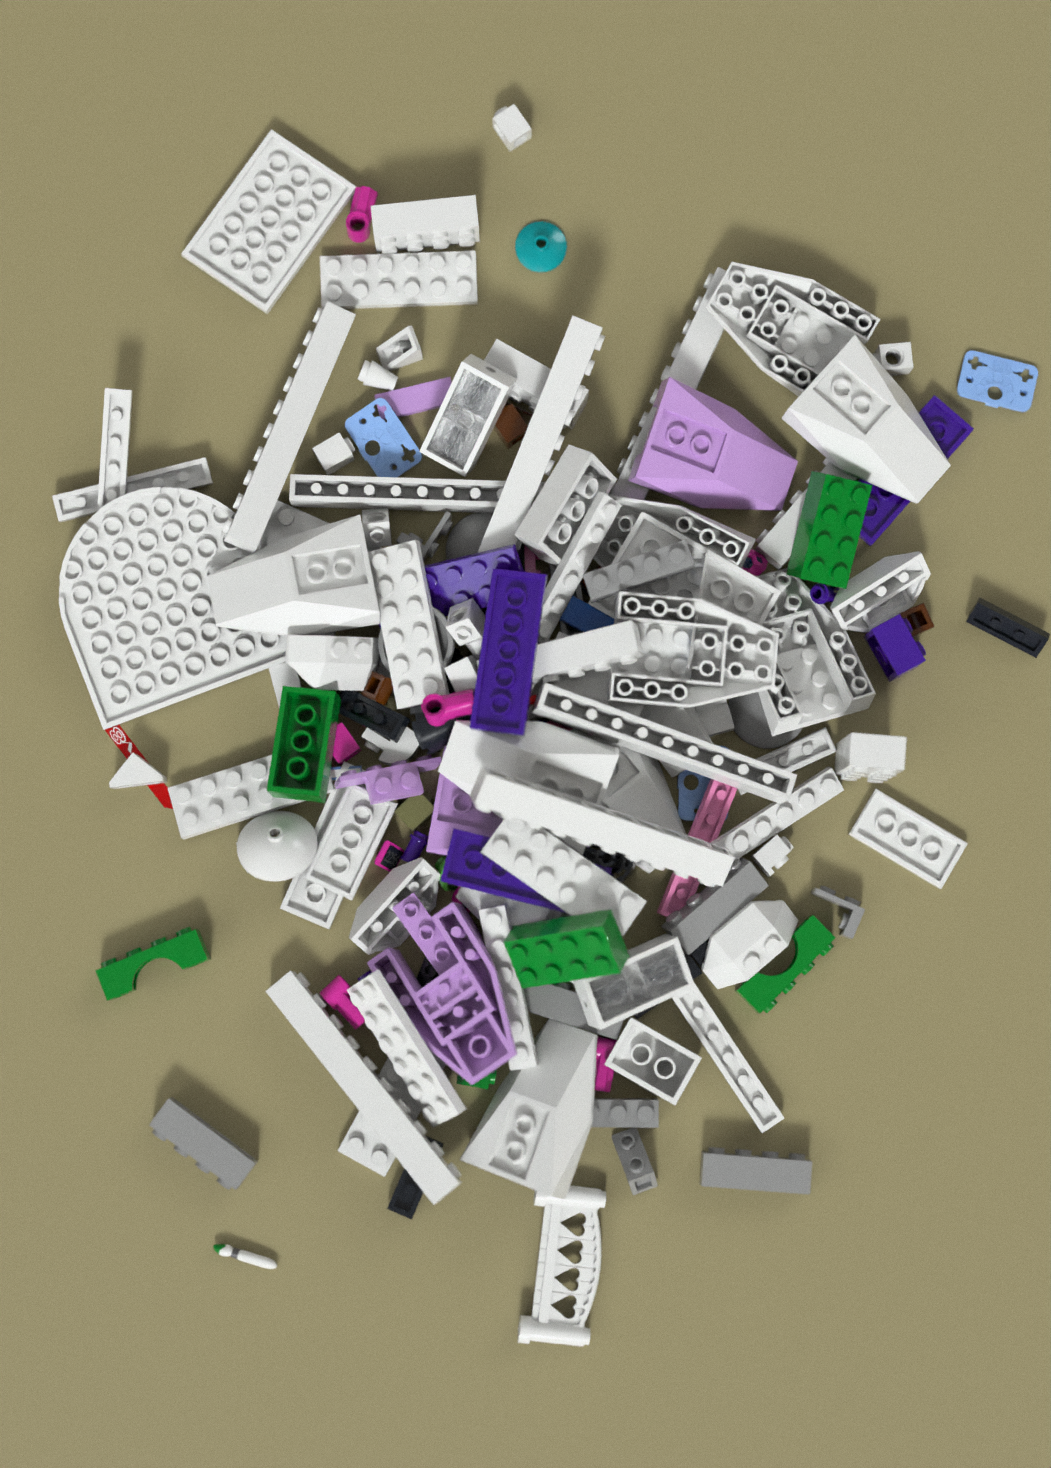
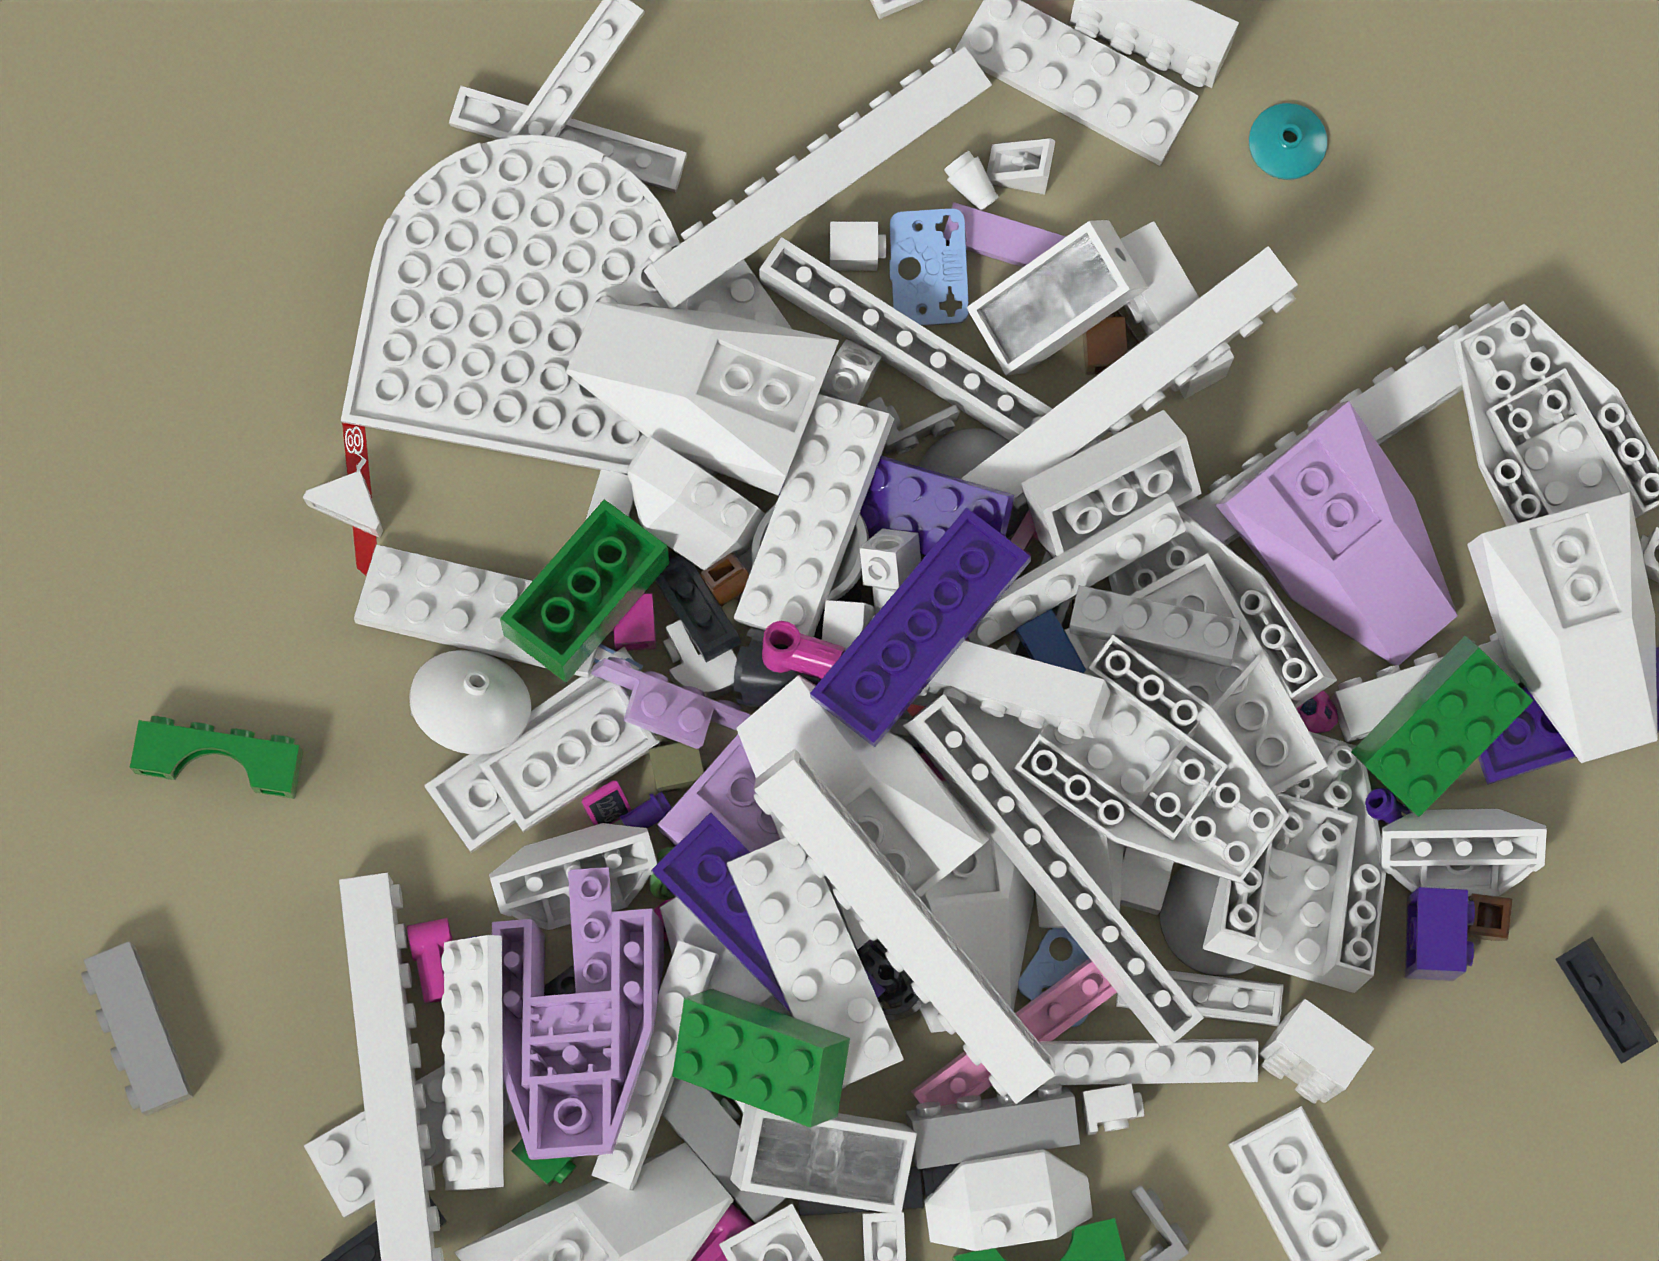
camera: 30 degrees right, 5 degrees down
(245, 1256) = (82, 1188): white piece -> none

